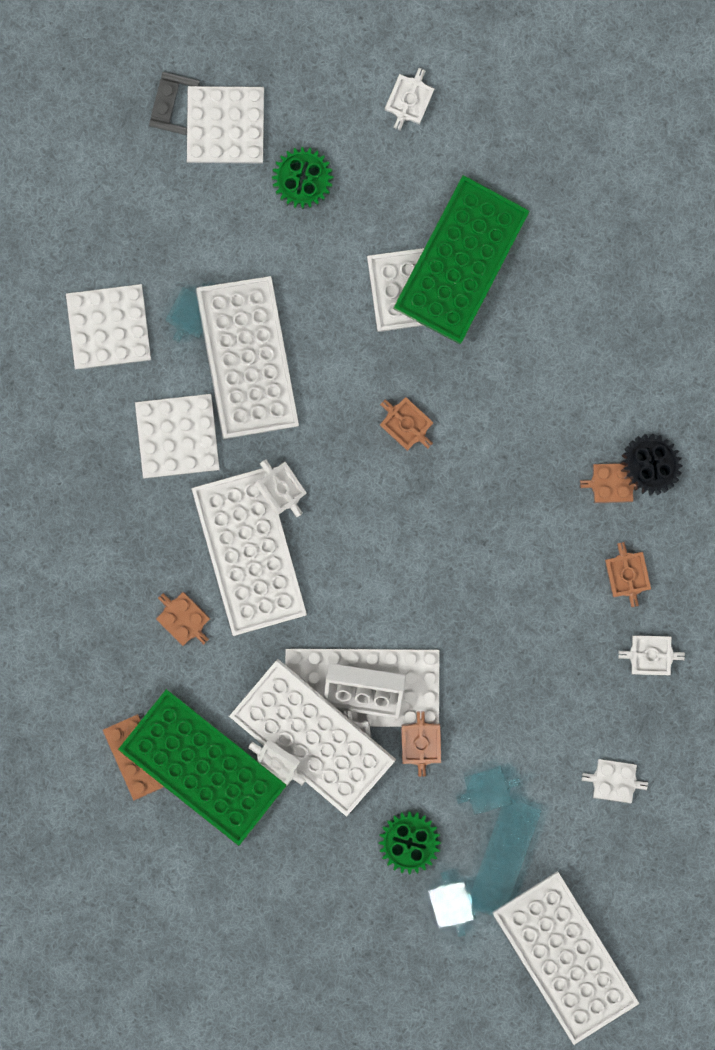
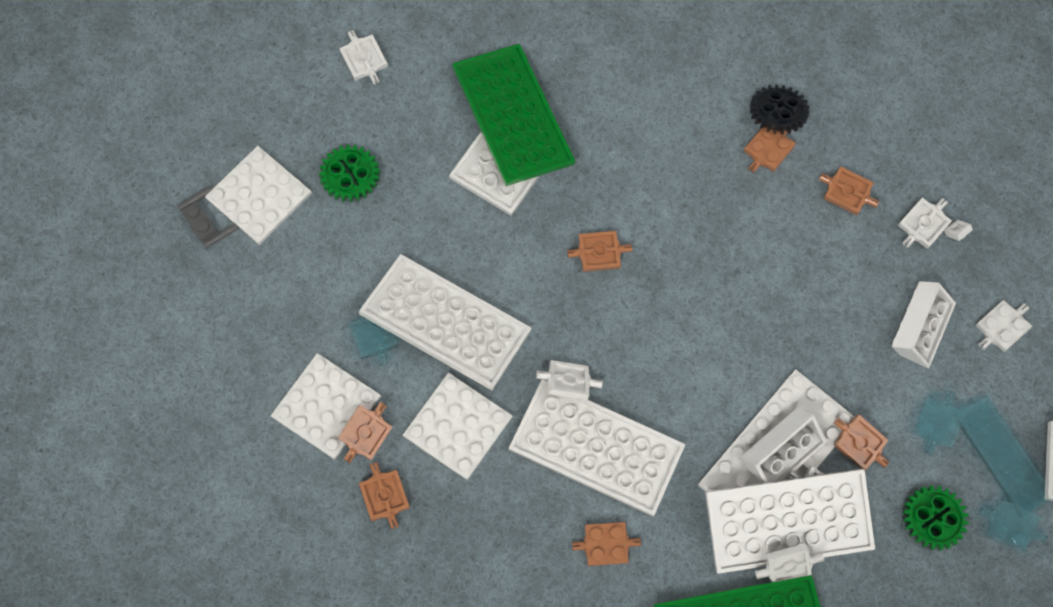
camera: 50 degrees left, 15 degrees down
(79, 429) = (384, 495): none -> nougat plate
(112, 374) = (364, 432): none -> nougat plate
(561, 719) = (924, 323): none -> white slope
(667, 686) = (958, 230): none -> white plate

